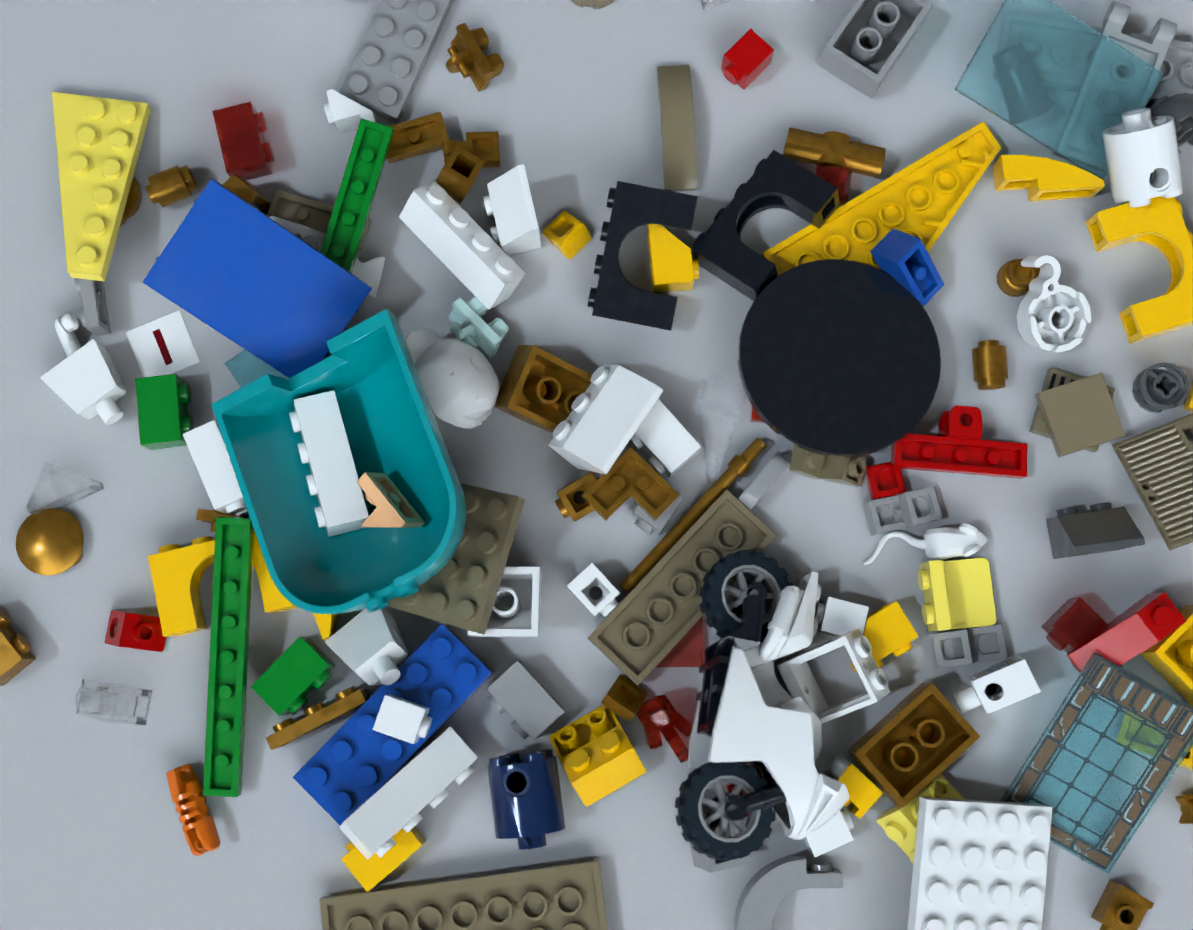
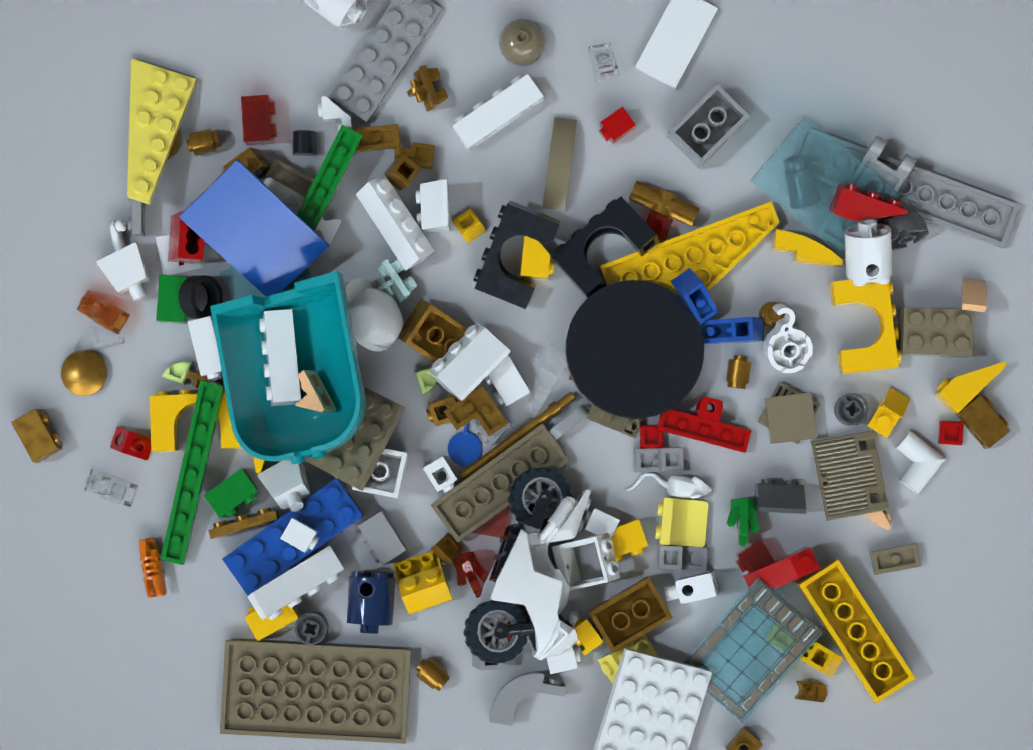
camera: 15 degrees right, 5 degrees up
(63, 448) = (103, 312): none -> clear orange slope
(165, 327) = (184, 243): none -> red piece
(177, 397) = (187, 293): none -> black tyre
(185, 515) = (177, 372): none -> yellowish green tile
(314, 162) = (304, 143): none -> black brick
(445, 855) = (311, 628): none -> dark grey wheel
(547, 460) = (426, 380): none -> yellowish green tile
(577, 71) = (497, 112): none -> white brick
(620, 546) = (464, 448): none -> blue piece
(637, 890) = (432, 674): none -> pearl gold brick
(971, 307) = (733, 330): none -> blue slope
(1045, 571) = (744, 513): none -> green rock
(1110, 93) = (859, 206): none -> red slope

